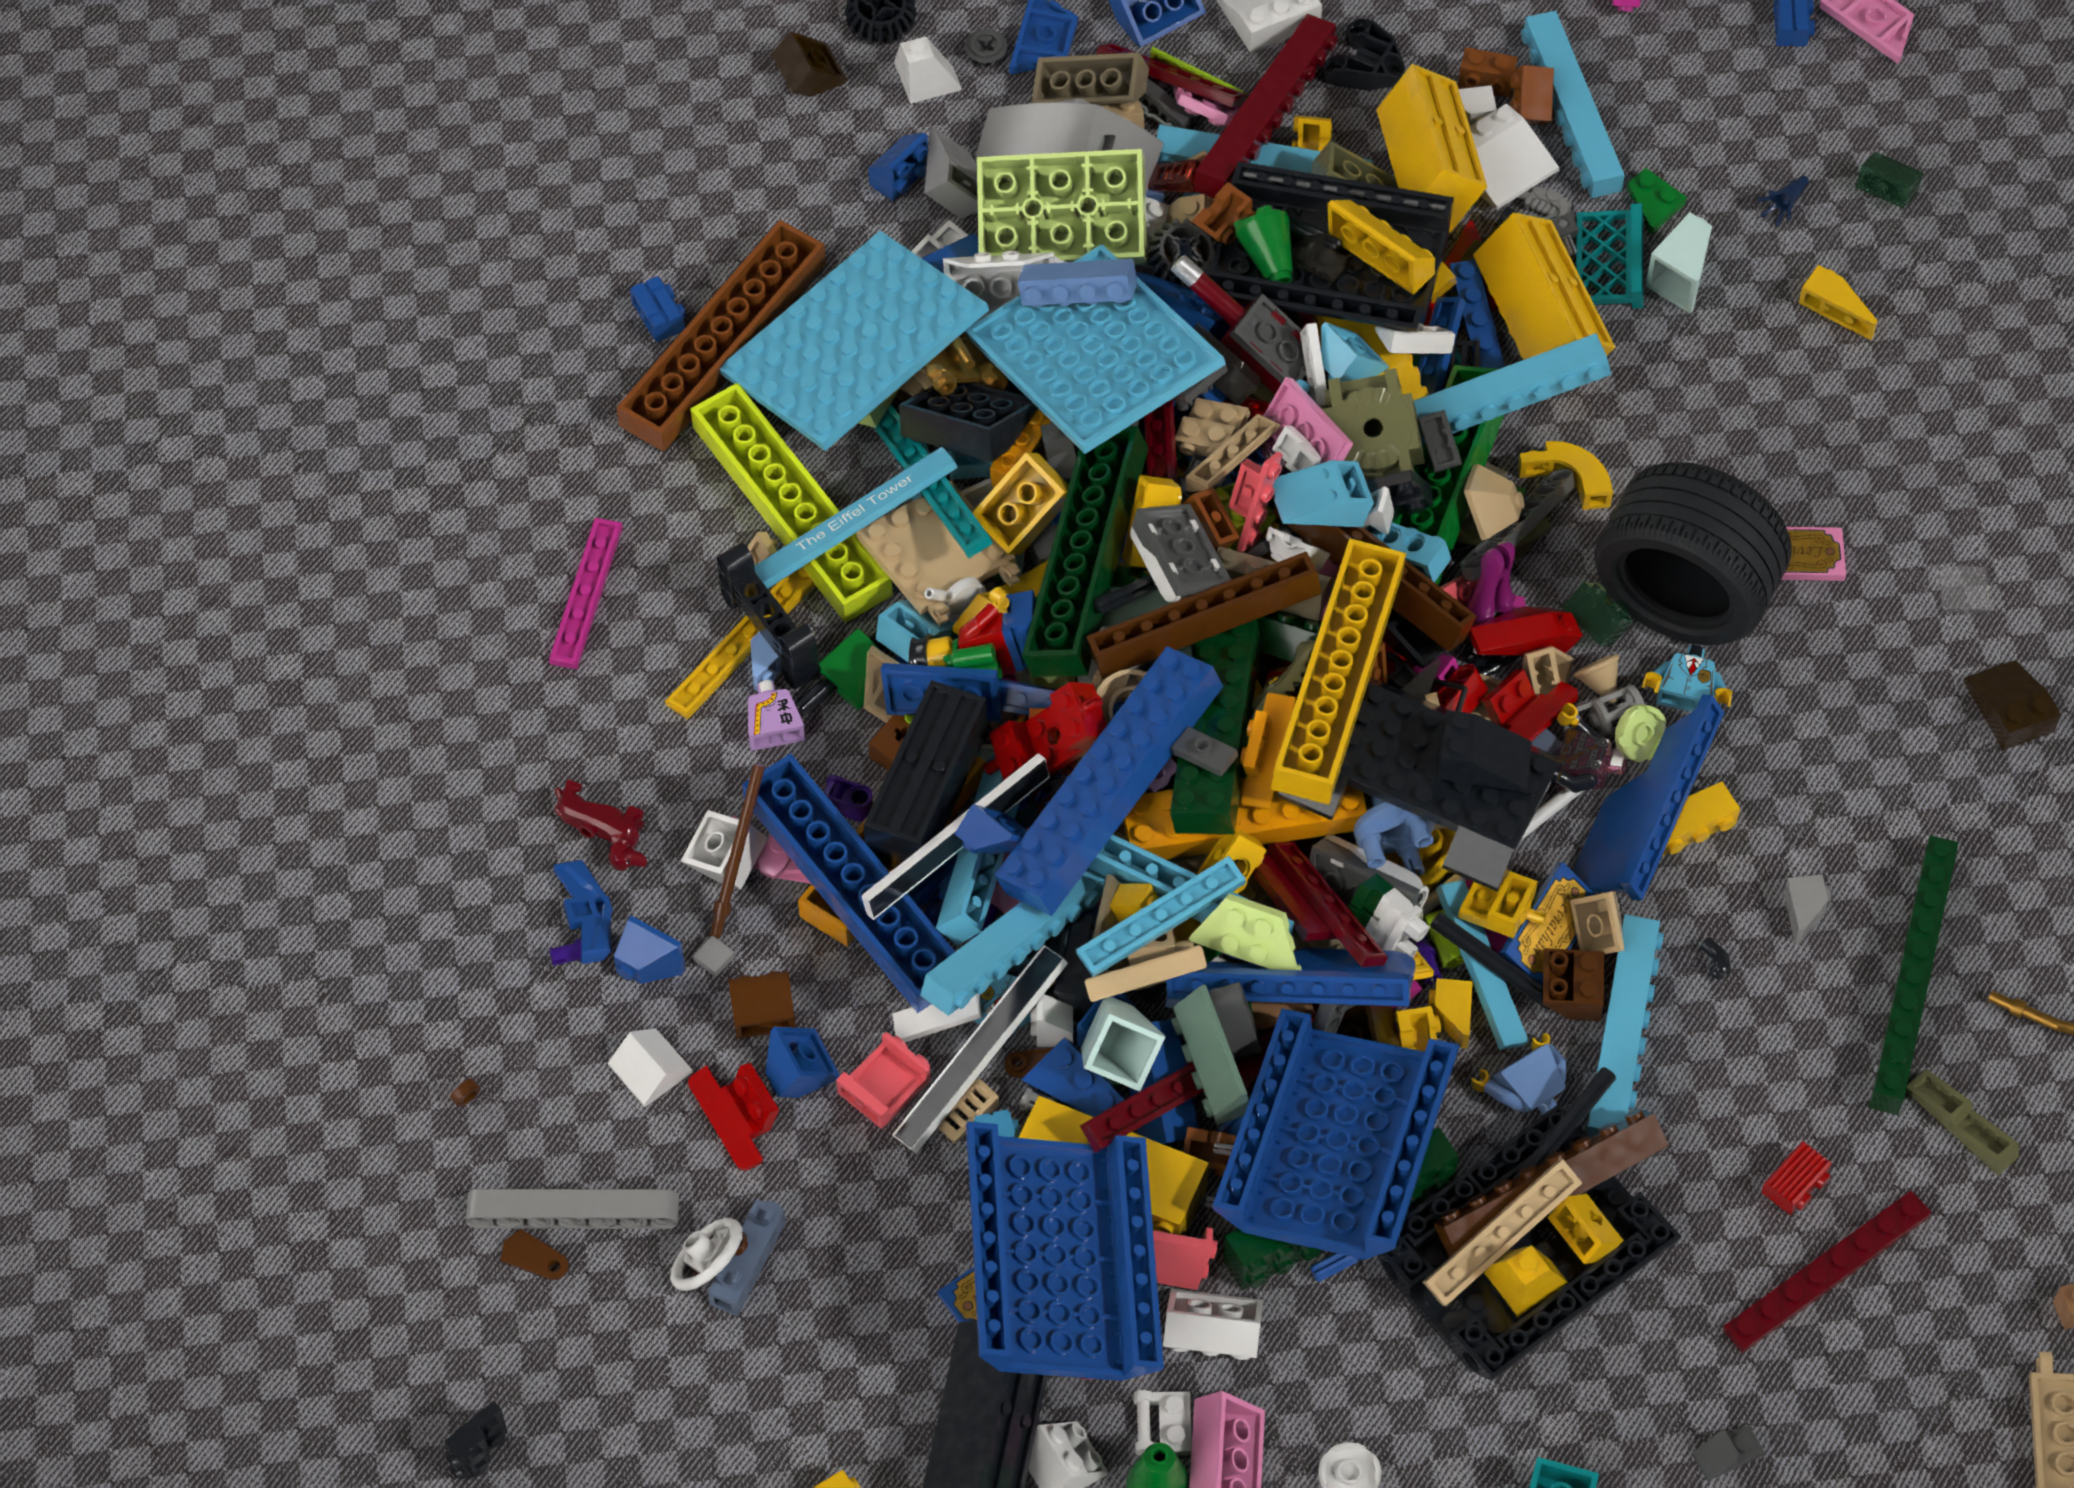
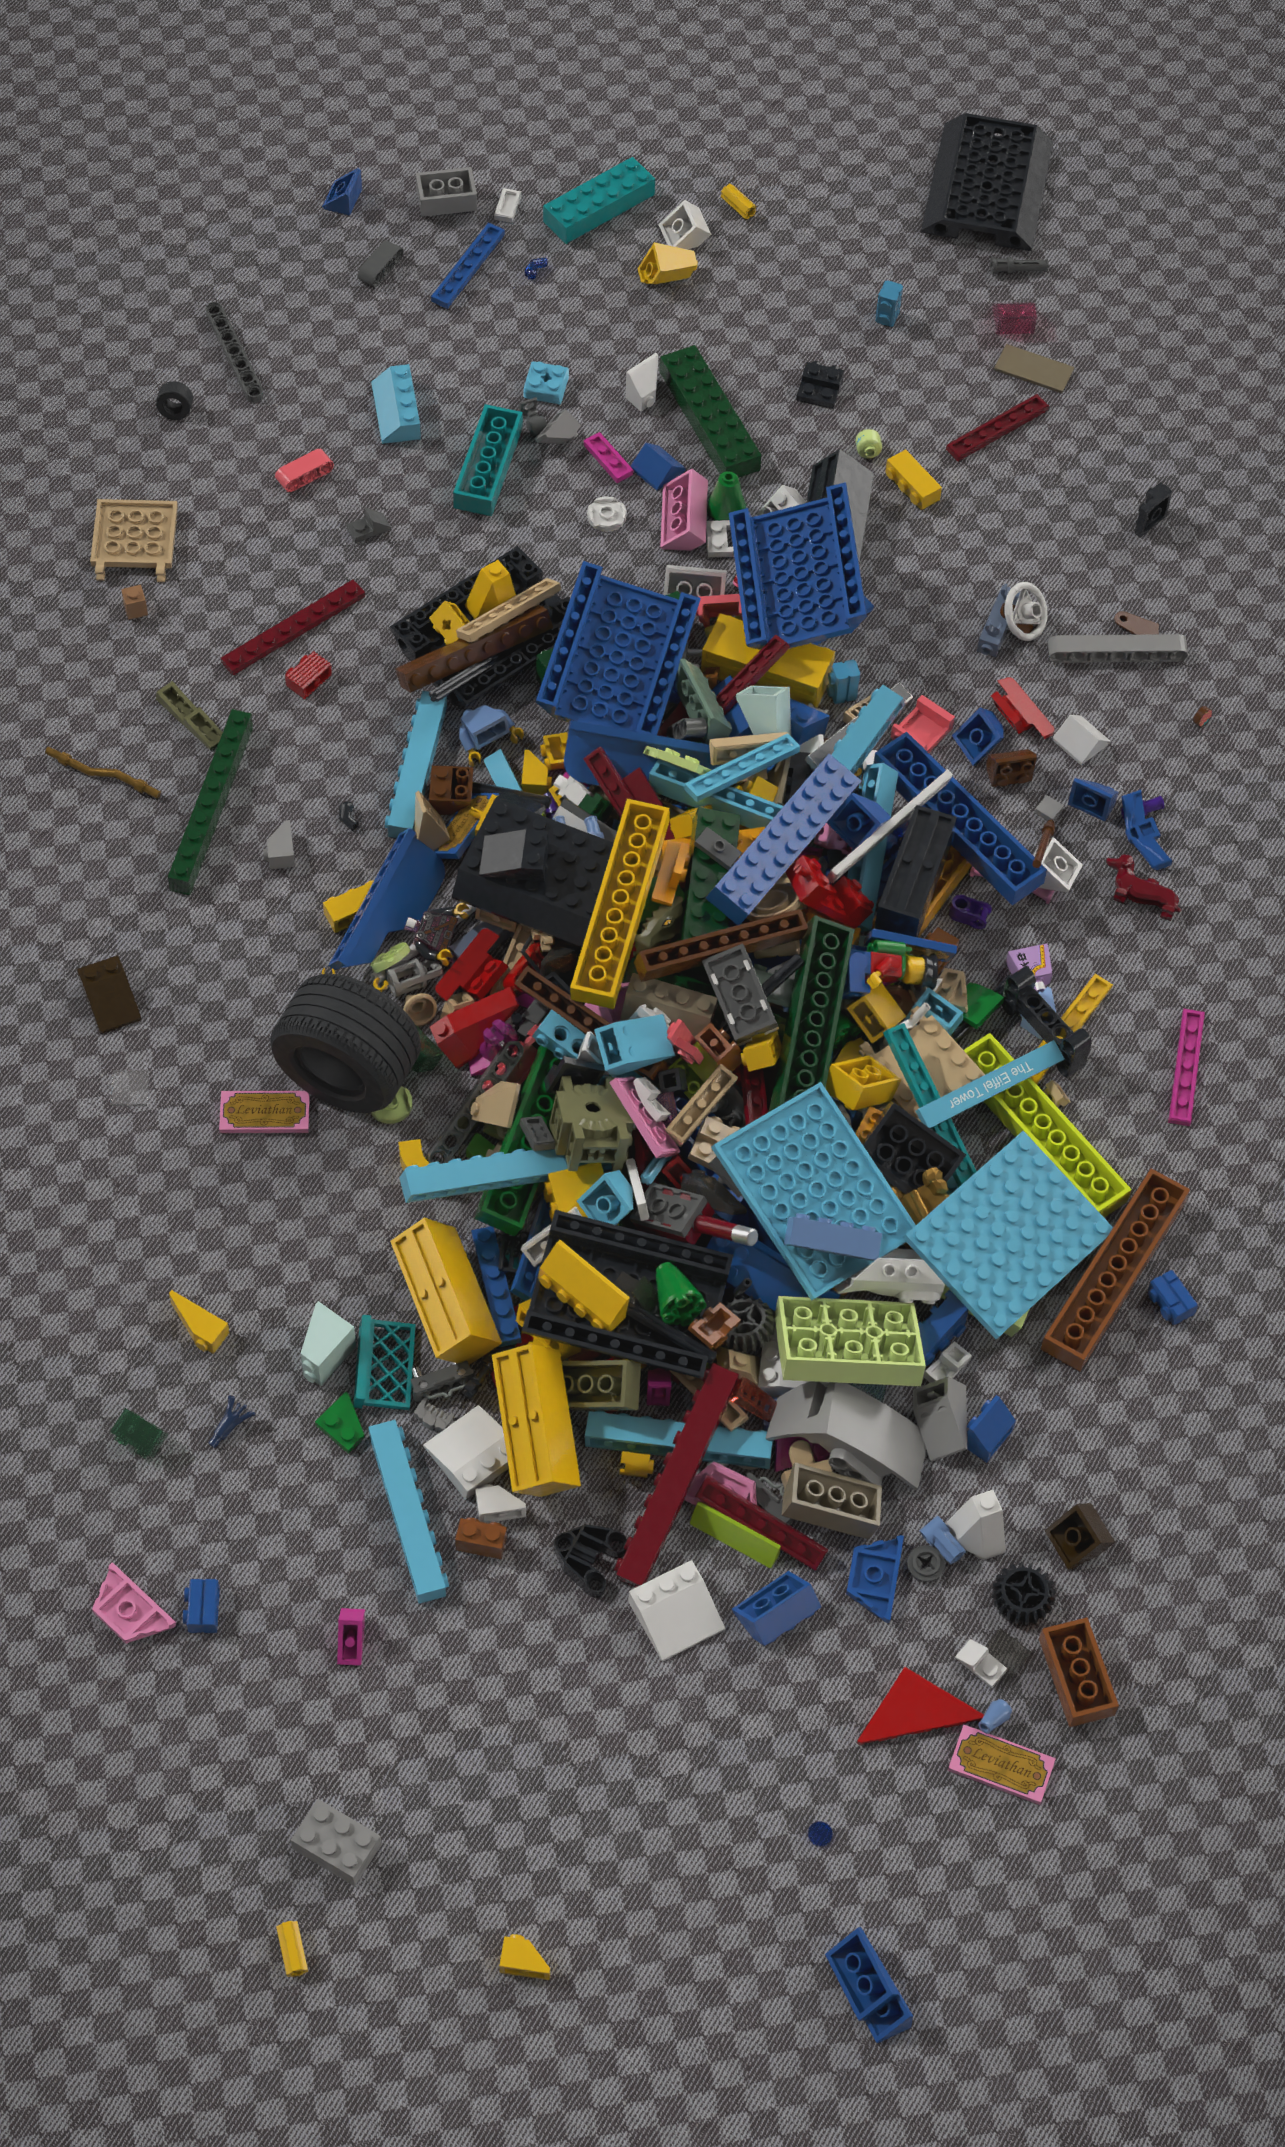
camera: 175 degrees right, 0 degrees up
(968, 67) = (939, 1536): none -> medium blue piece
(1533, 93) = (444, 1504): dark orange brick -> none

